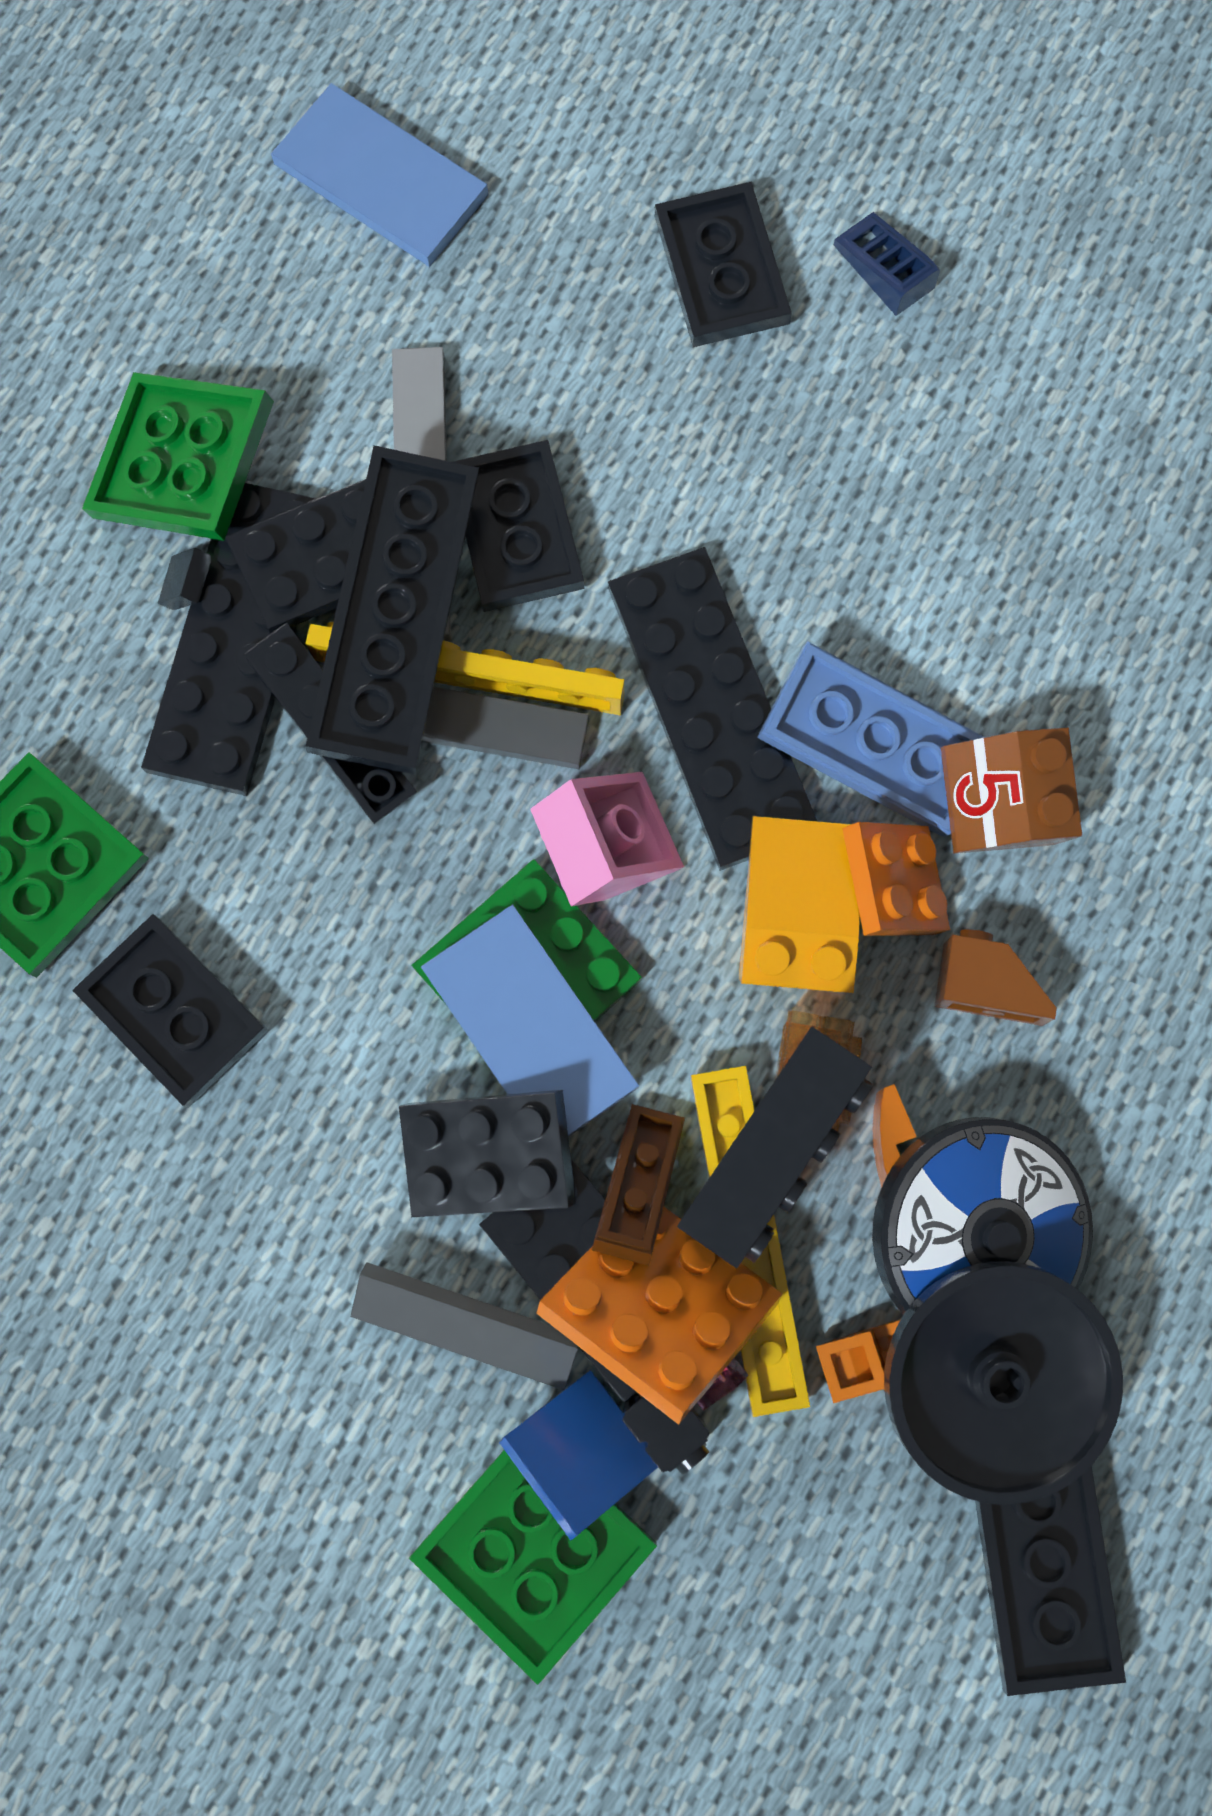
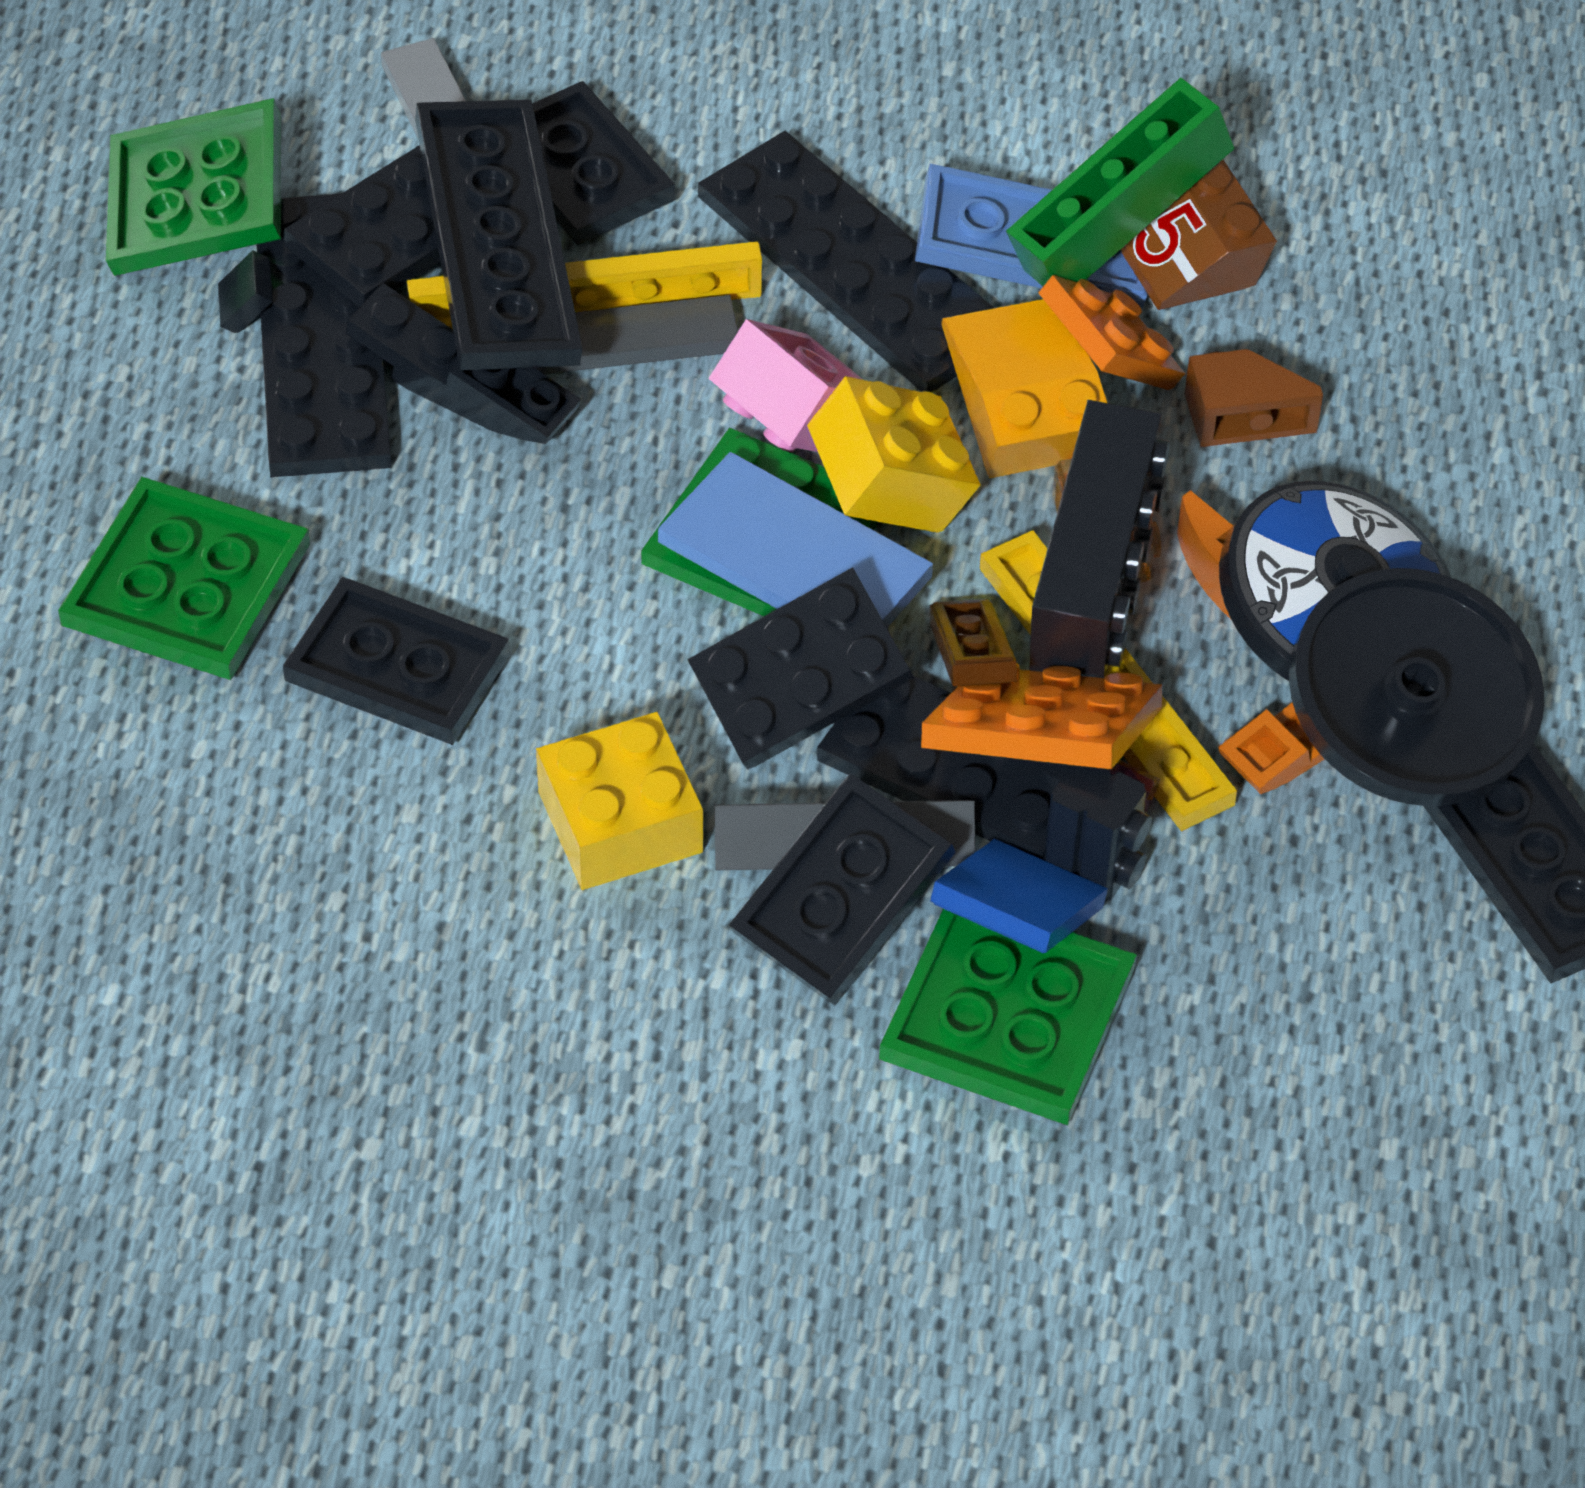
camera: 25 degrees left, 25 degrees down
(289, 1229) = (619, 800): none -> yellow brick
(435, 1395) = (842, 888): none -> black plate
(649, 956) = (893, 455): none -> yellow brick
(955, 753) = (1122, 186): none -> green brick

